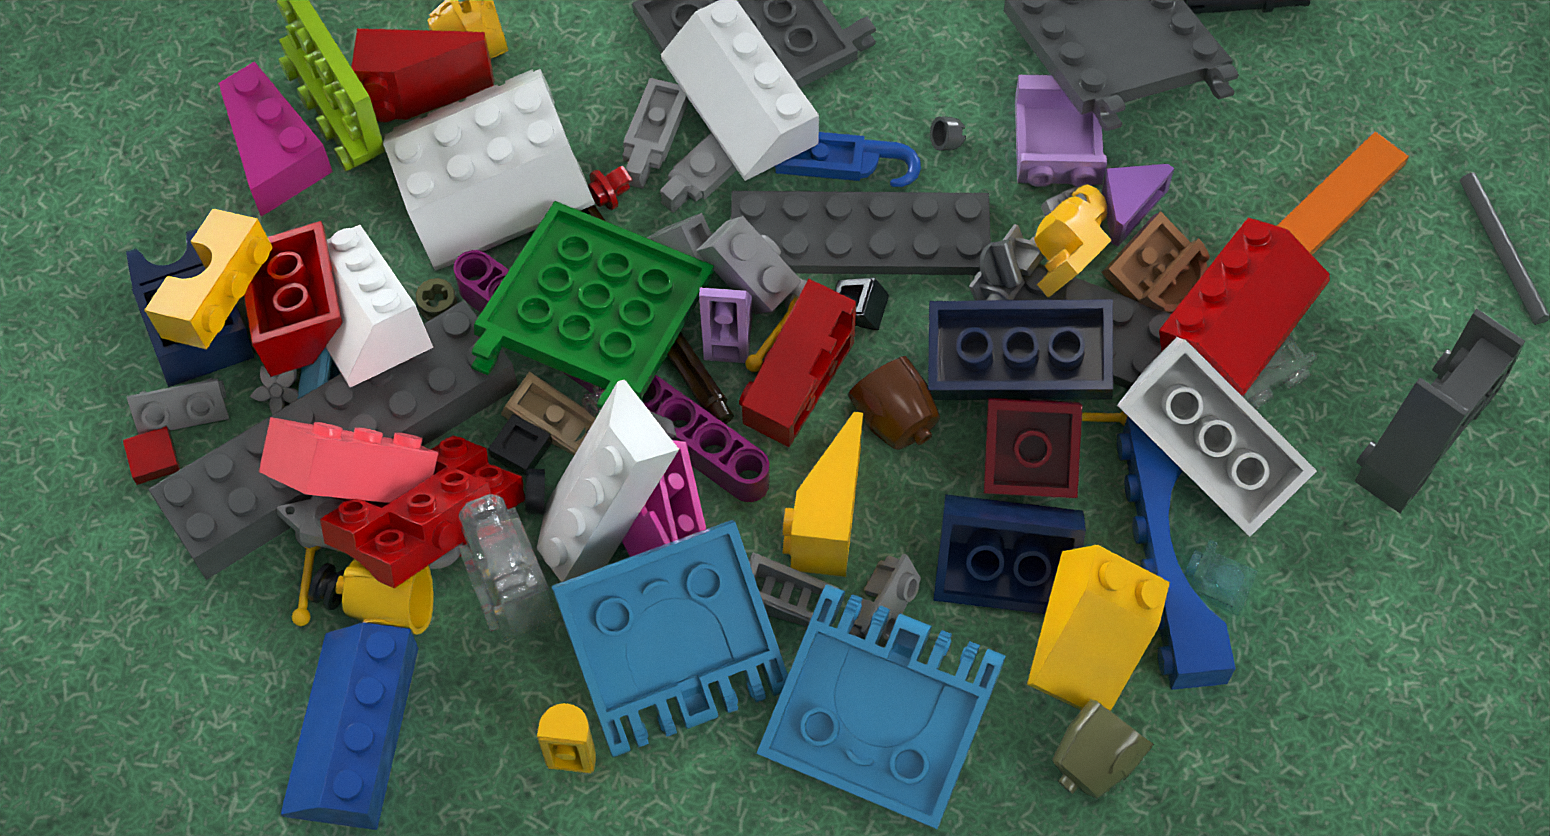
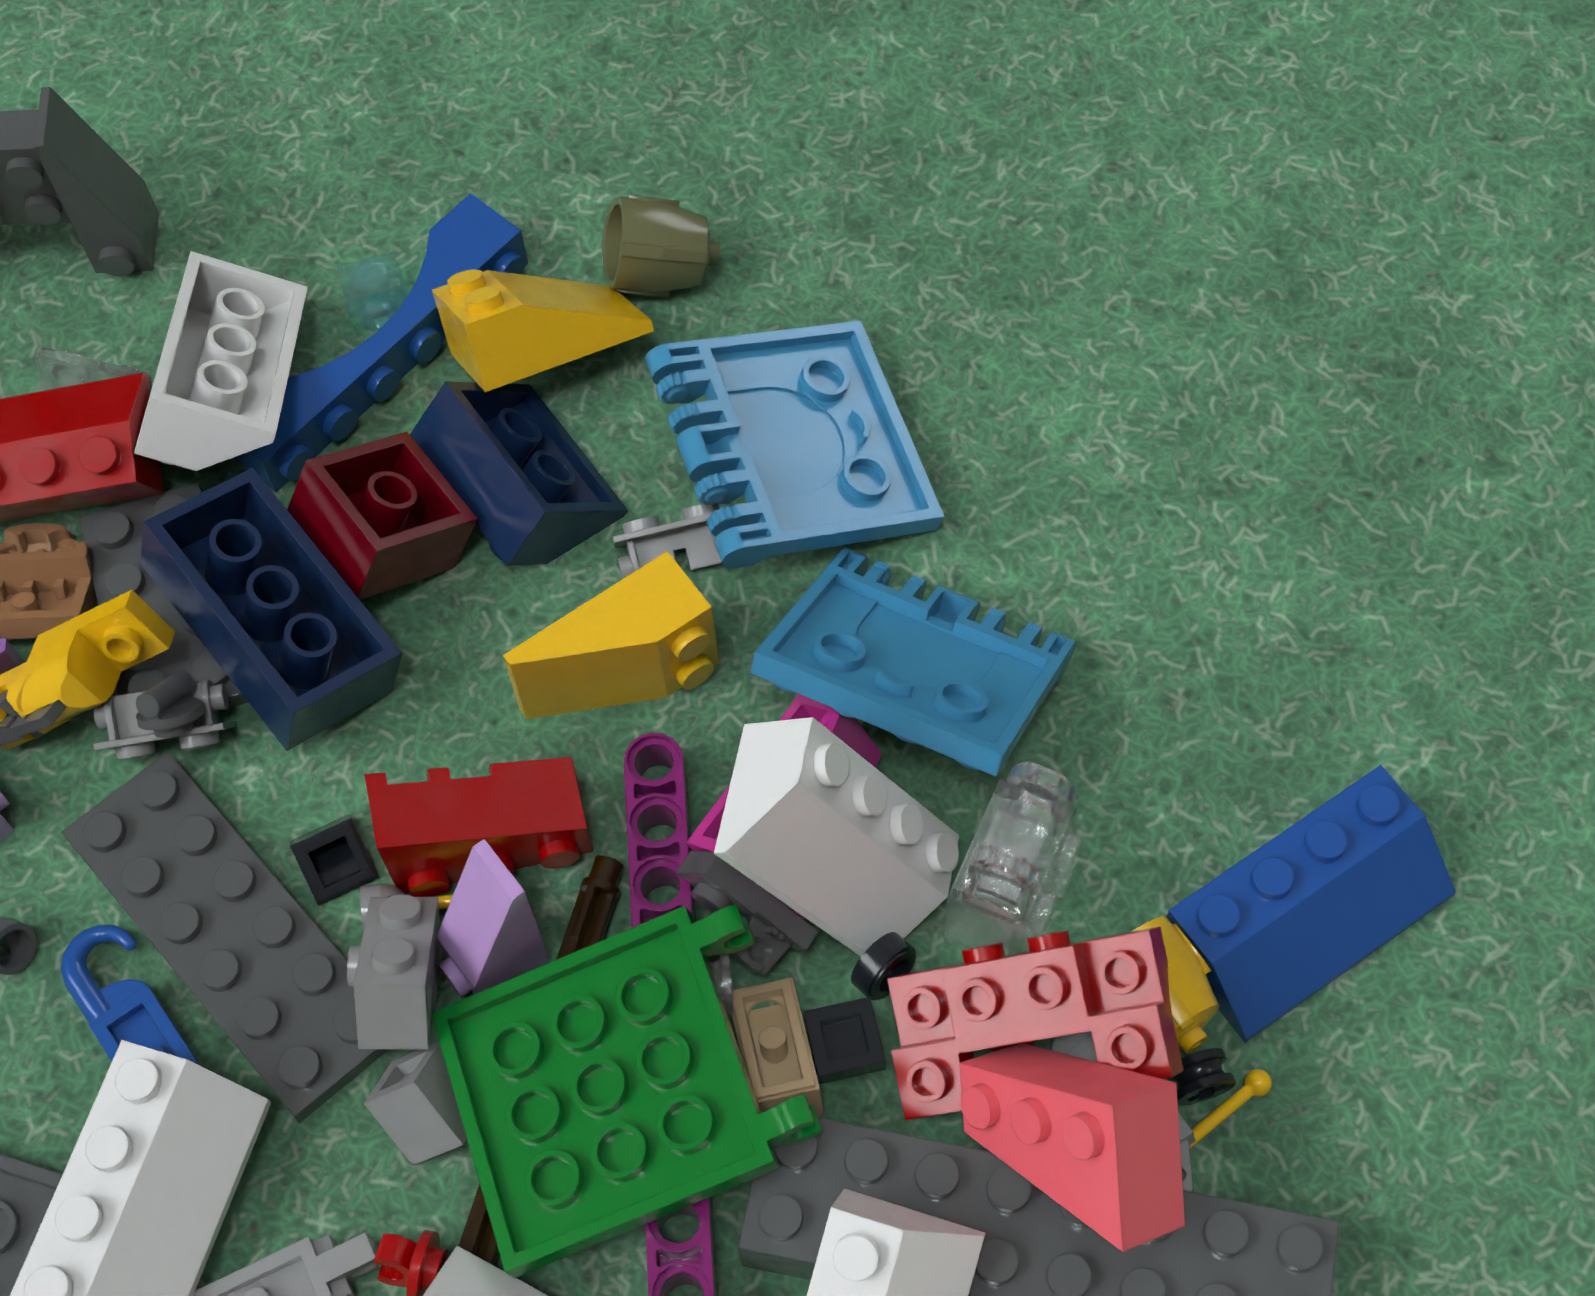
camera: 130 degrees left, 0 degrees up
(566, 739) = (1115, 663): yellow brick -> none
(697, 174) = (298, 1187): light grey hinge -> none
(790, 578) = (732, 597): light grey slope -> none
(896, 404) = (441, 675): reddish brown helmet -> none

